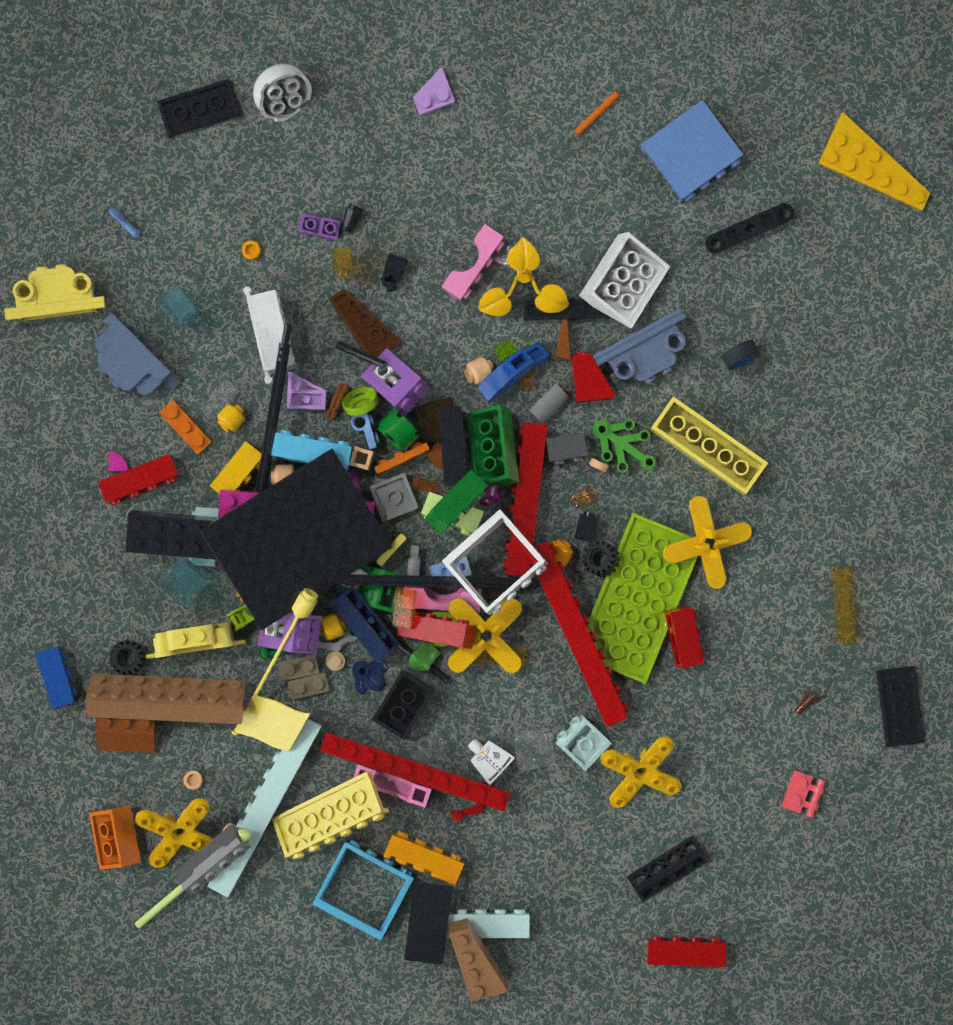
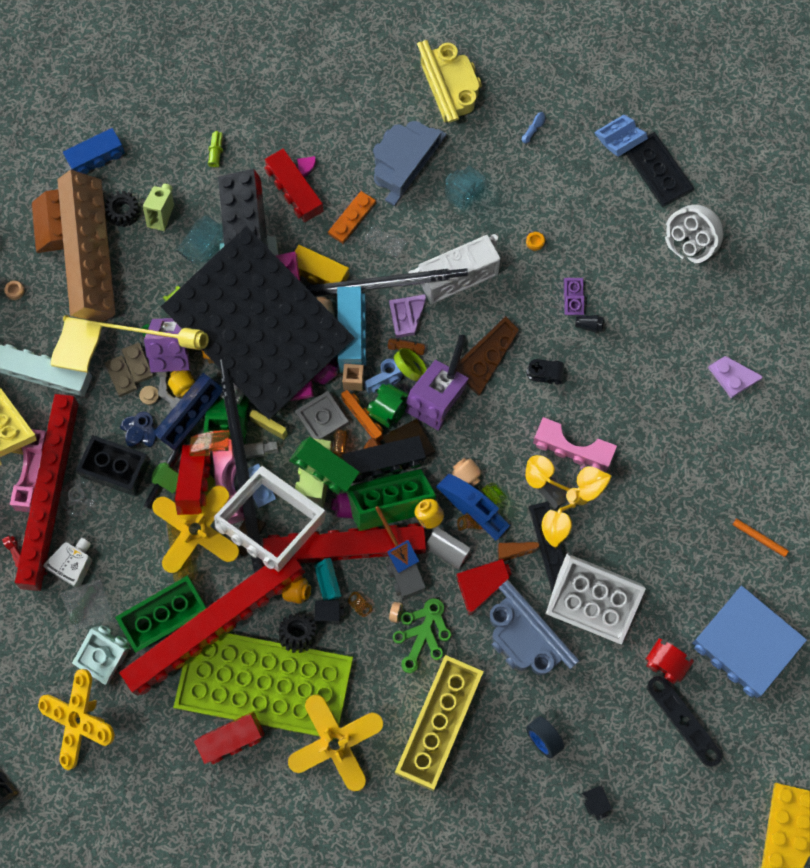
camera: 80 degrees right, 15 degrees down
(78, 552) = (215, 149): none -> lime axle
(134, 618) = (158, 207): none -> yellowish green torso
(153, 136) = (621, 135): none -> medium blue slope
(193, 640) = (148, 262): light yellow brick -> none
(231, 418) = (368, 252): yellow head -> none
(343, 262) = (543, 320): clear yellow brick -> none
(516, 414) = (429, 513): none -> yellow head
(549, 446) = (402, 554): none -> piece
(556, 522) = (327, 580): none -> teal tile
(557, 680) = (161, 613): none -> green slope
(695, 228) = (669, 661): none -> red brick
(804, 323) = (596, 802): none -> black window

